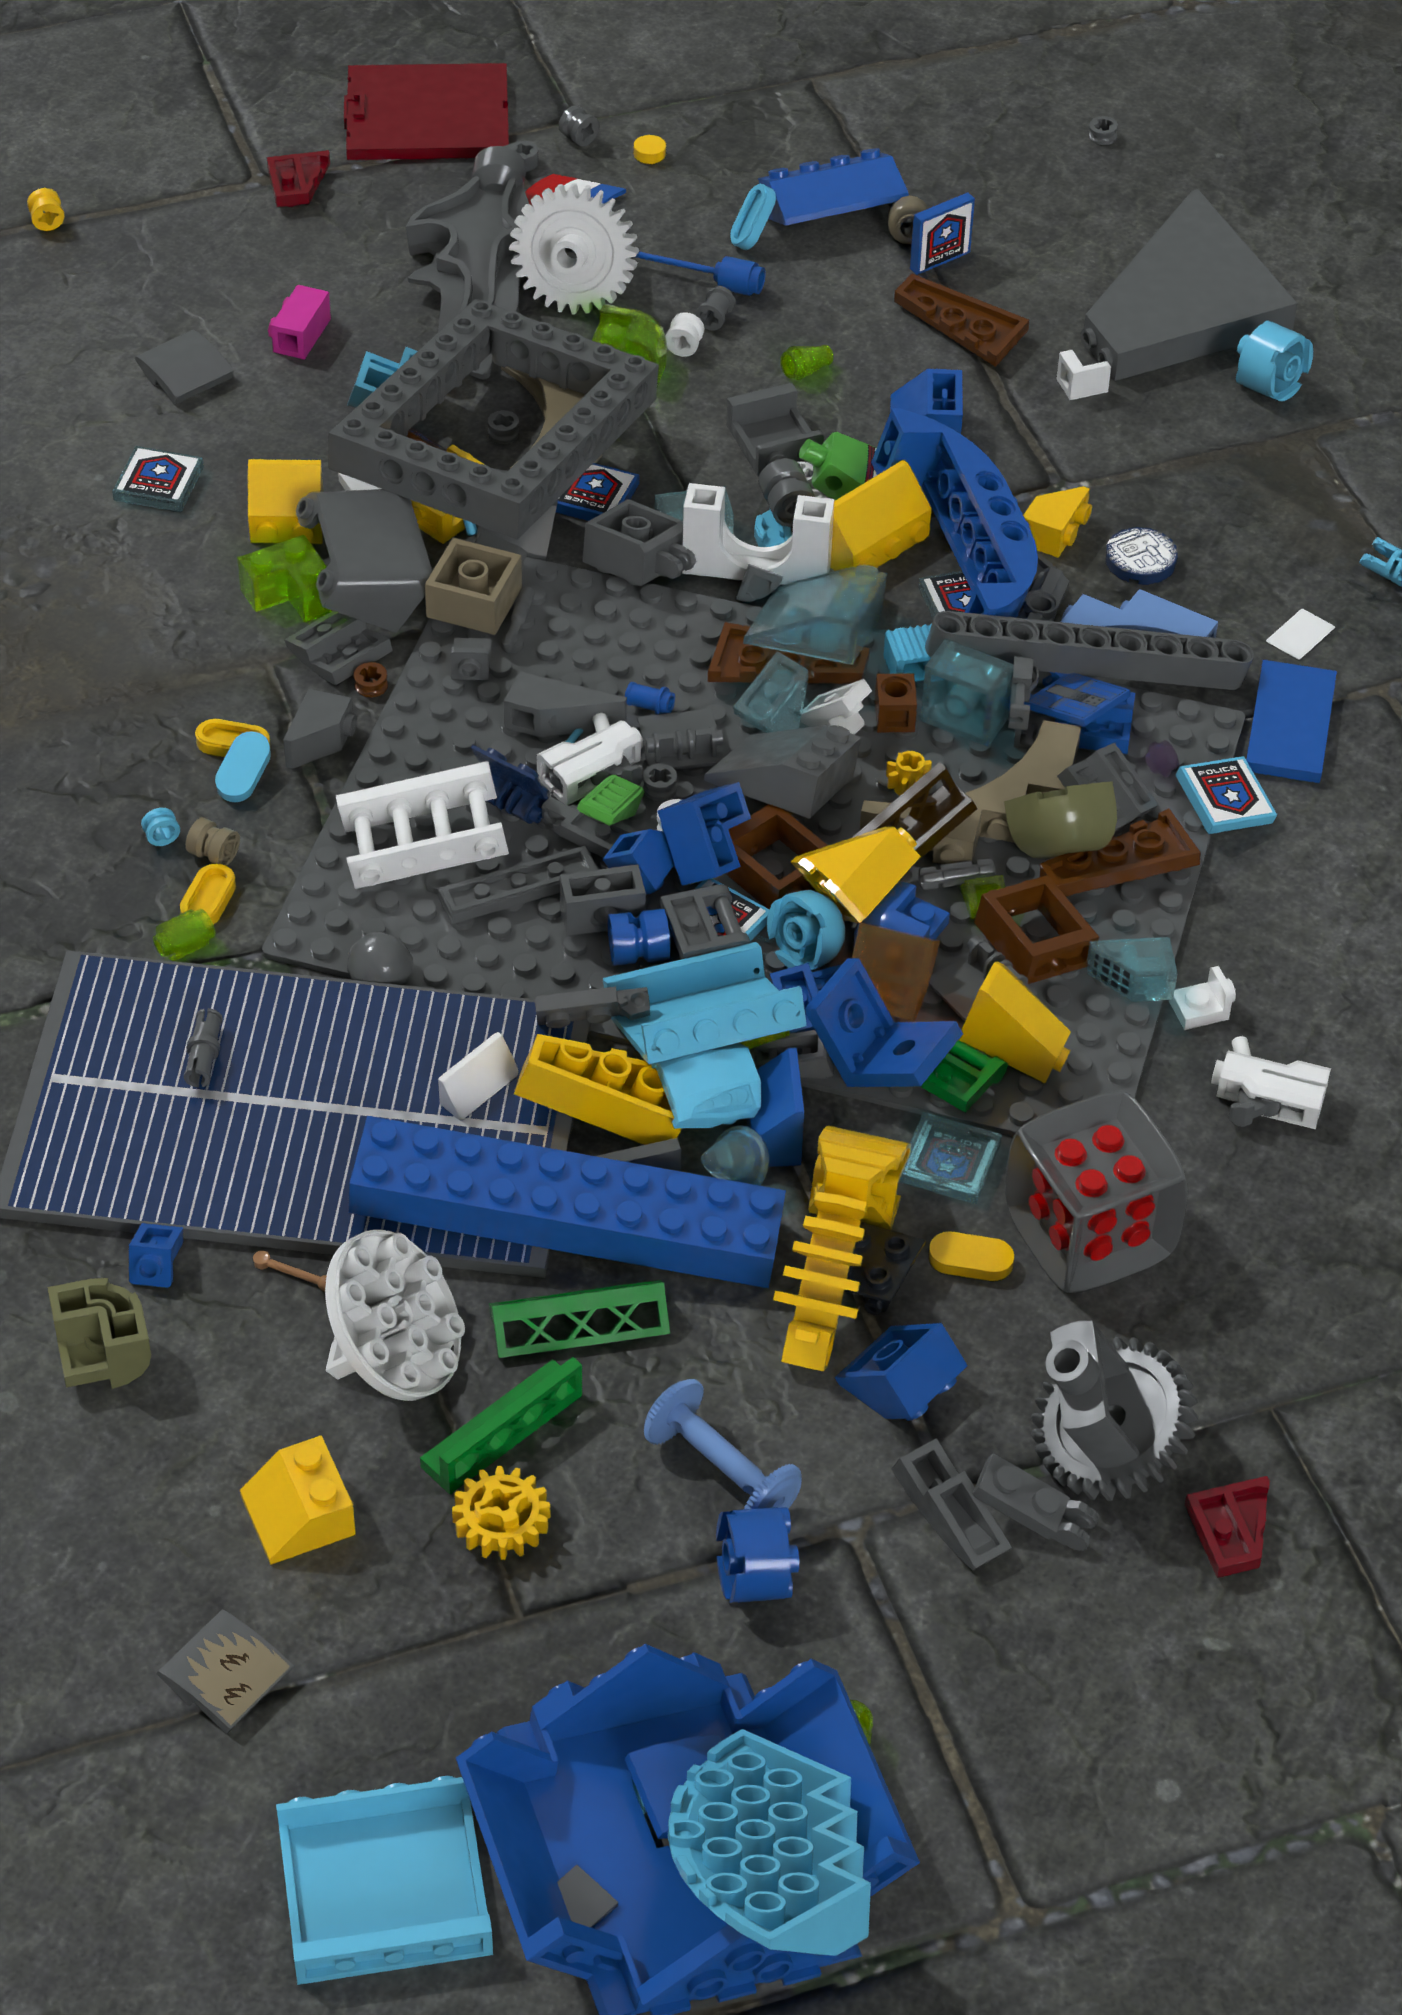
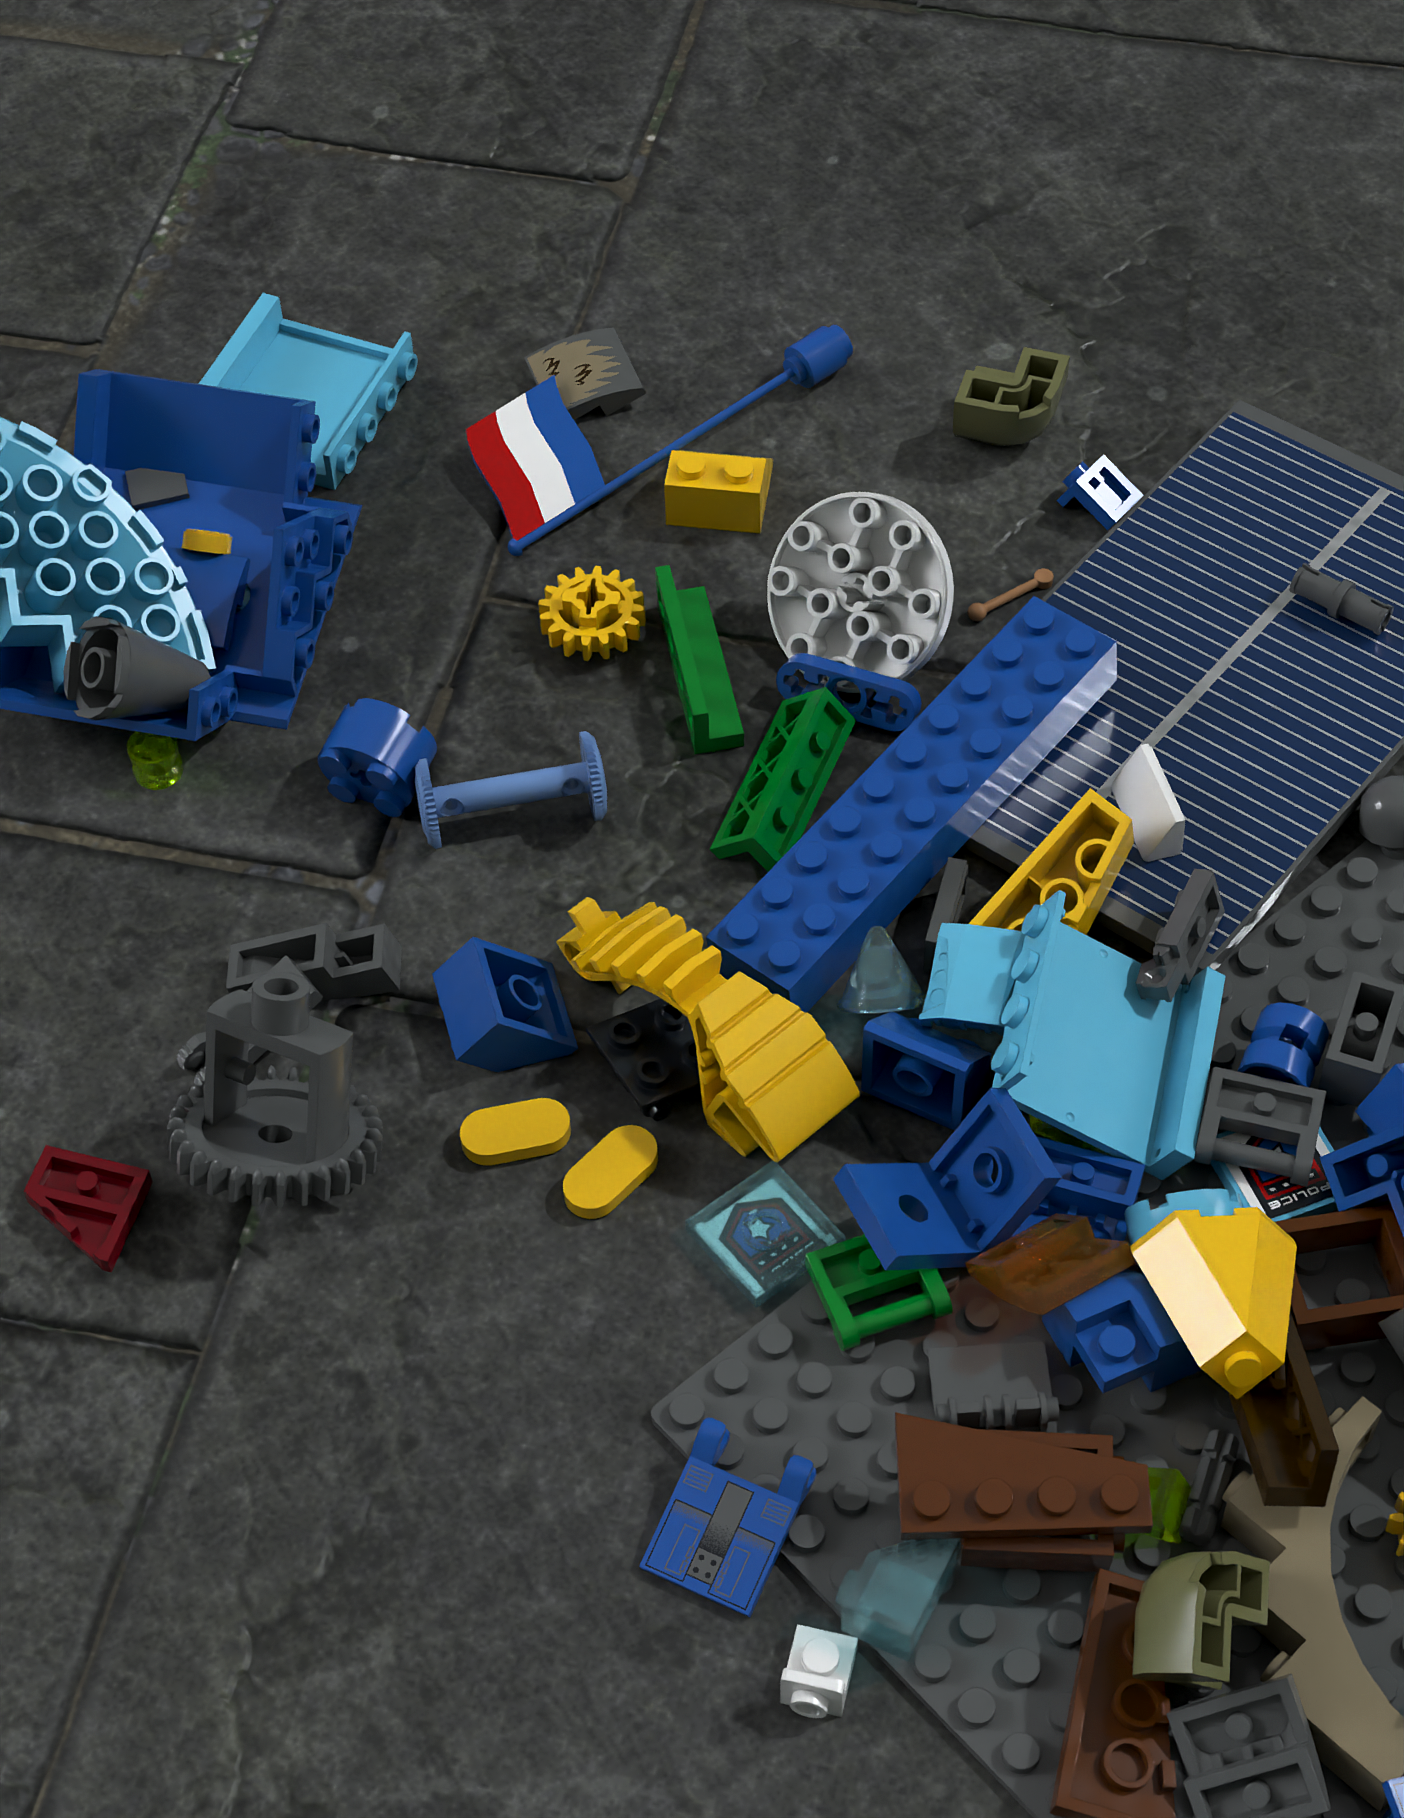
camera: 125 degrees right, 5 degrees up
(347, 1647) = (546, 468): none -> flag
(472, 1310) = (880, 715): none -> blue beam
(632, 1795) = (207, 541): none -> yellow tile
(830, 1721) = (127, 673): none -> dark grey cone
(983, 1322) = (515, 1131): none -> yellow tile
(1015, 1026) = (883, 1360): yellow slope -> none
(1060, 927) = (1000, 1485): none -> reddish brown wing
(1096, 1191) = (558, 1277): dark grey piece -> none
(1158, 1075) = (723, 1530): none -> blue flag
(1270, 1088) = (616, 1644): white piece -> none

